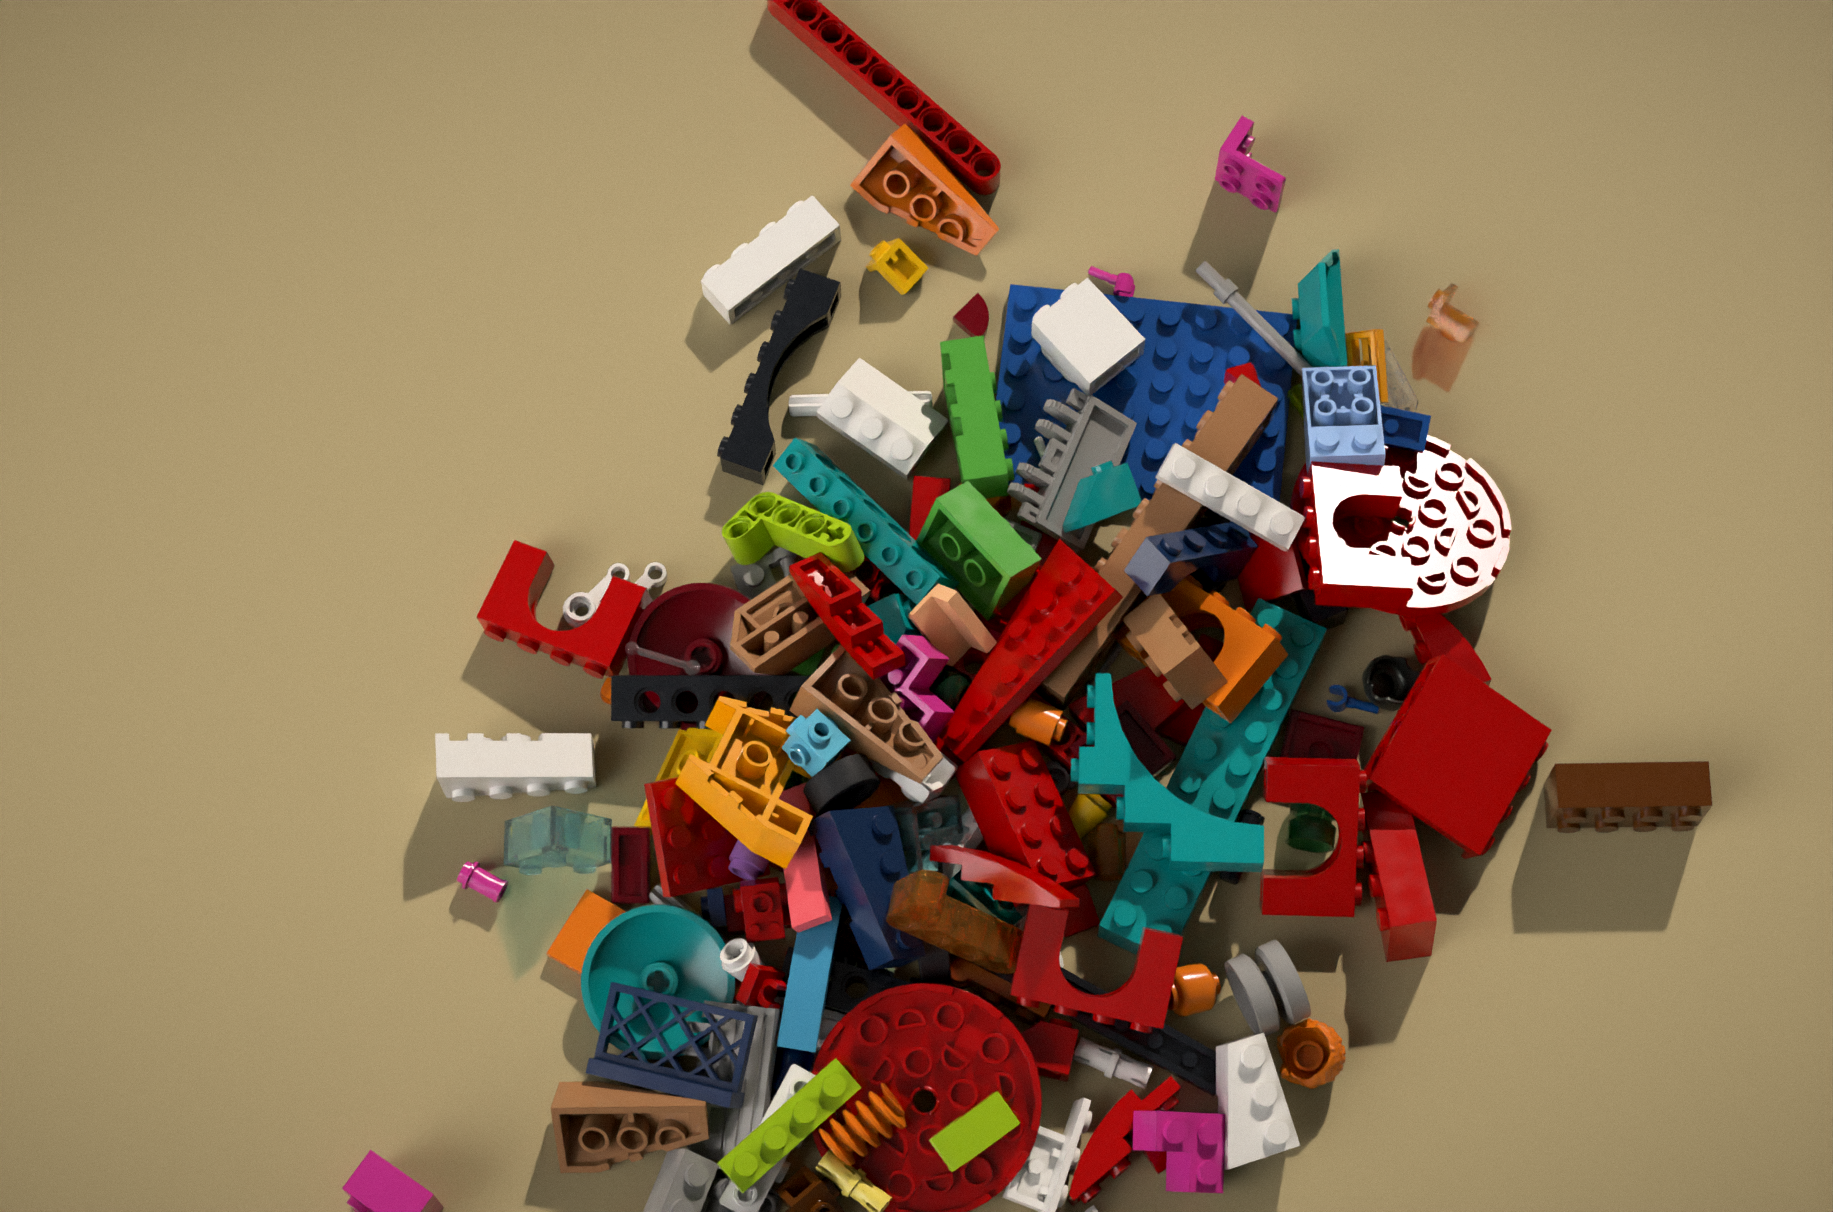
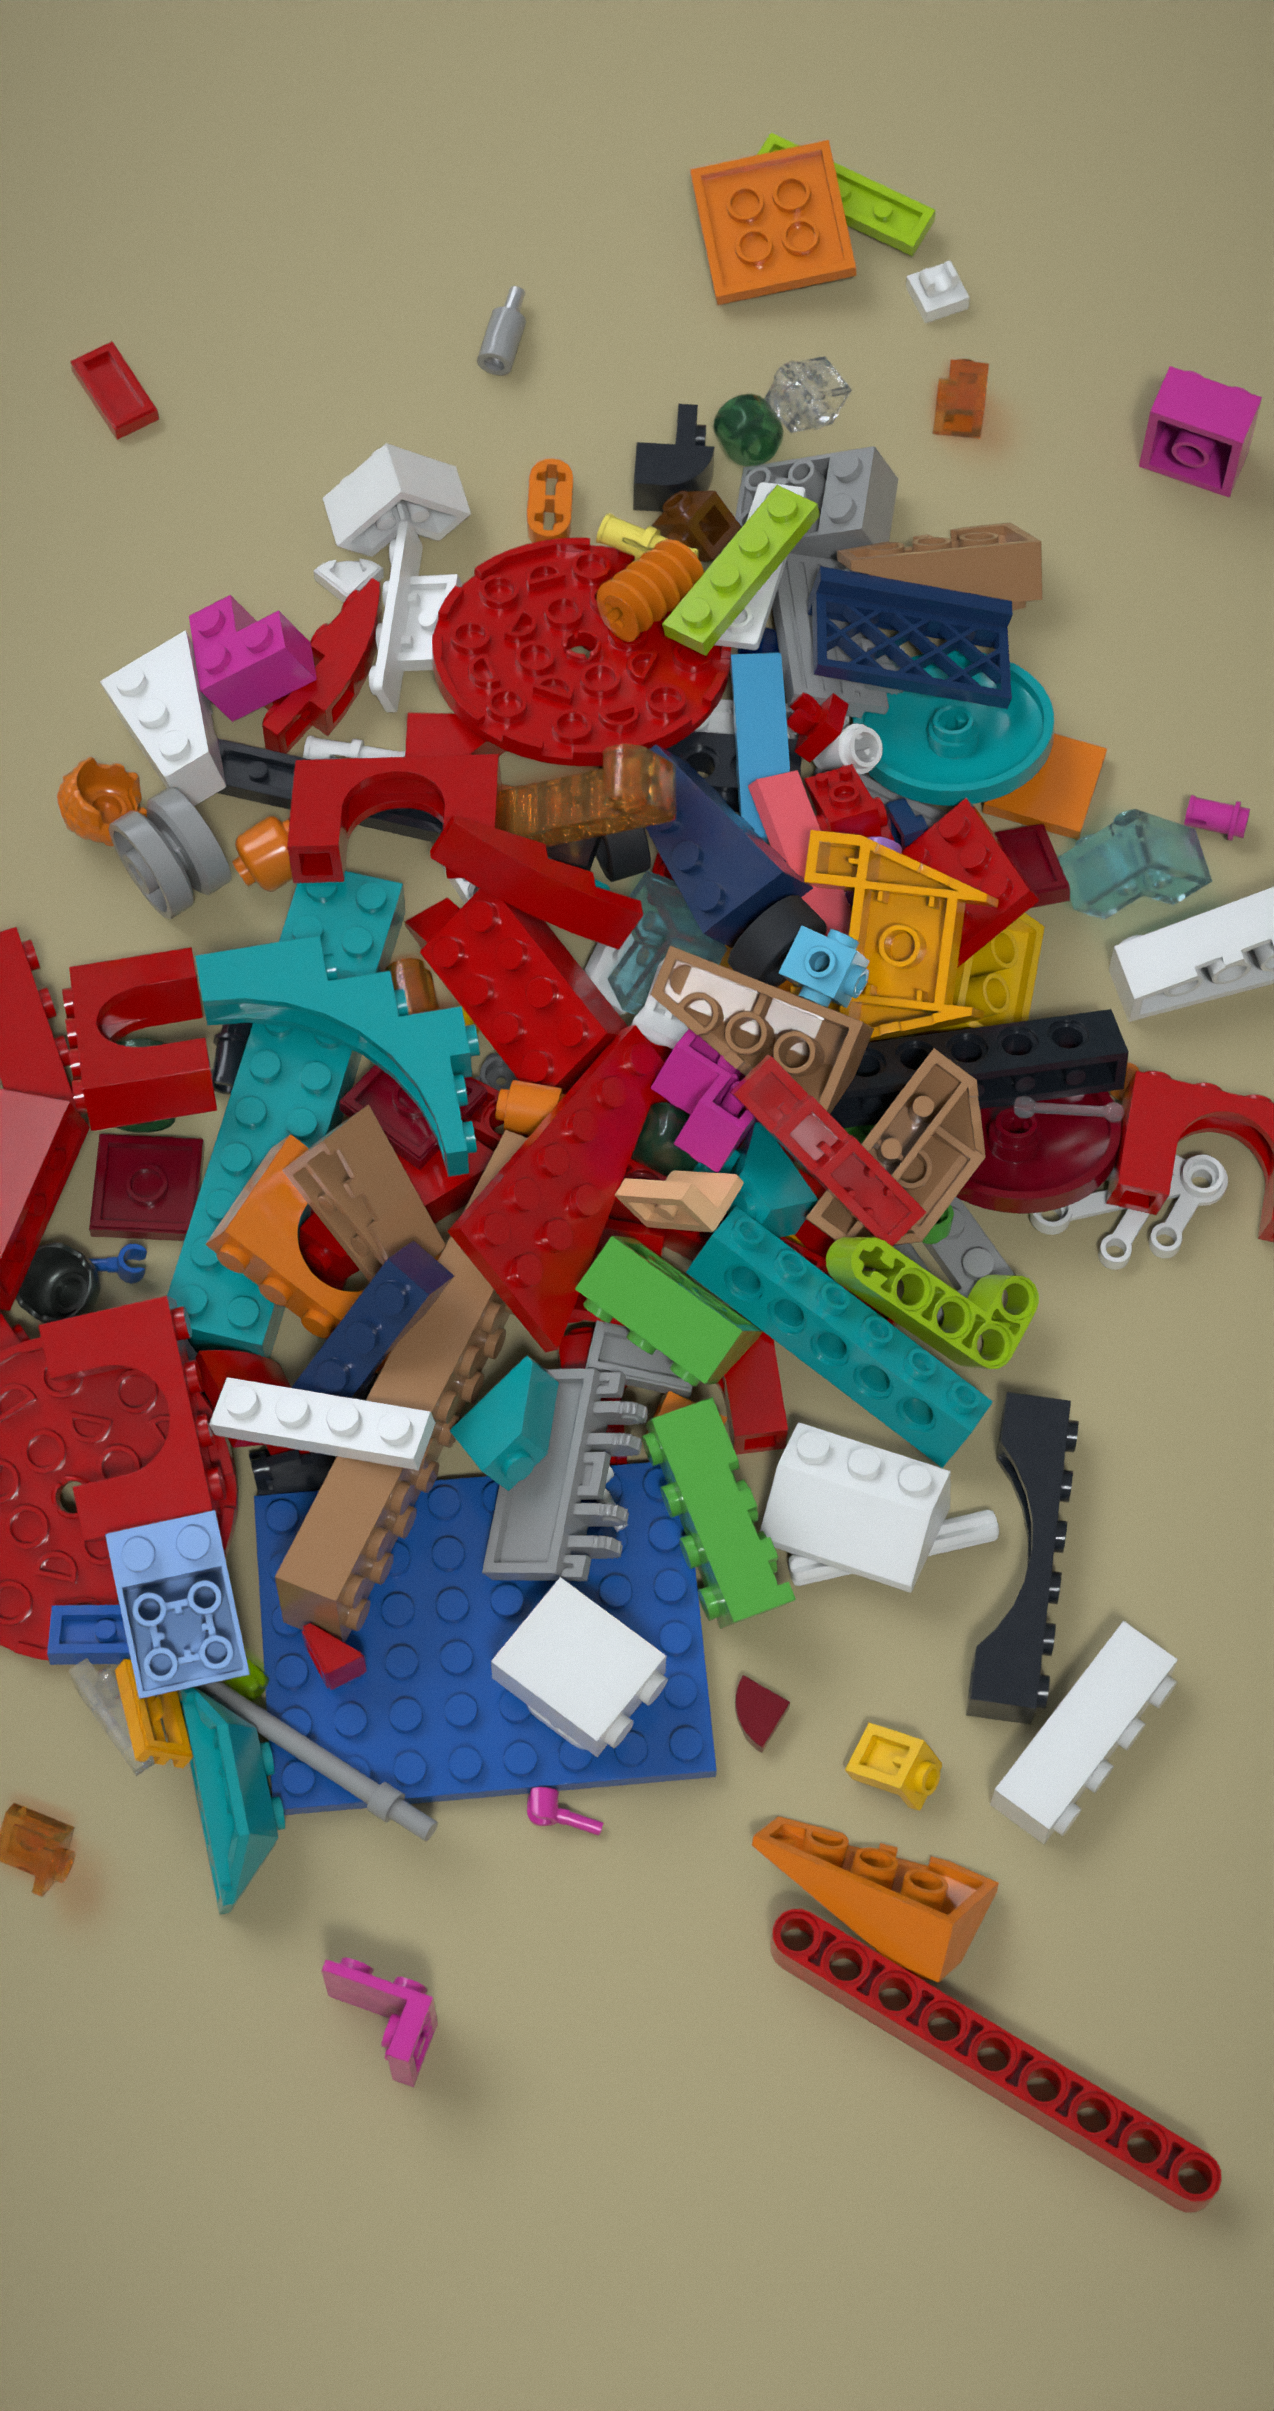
camera: 165 degrees right, 5 degrees down
(974, 1131) = (507, 605): lime slope -> none

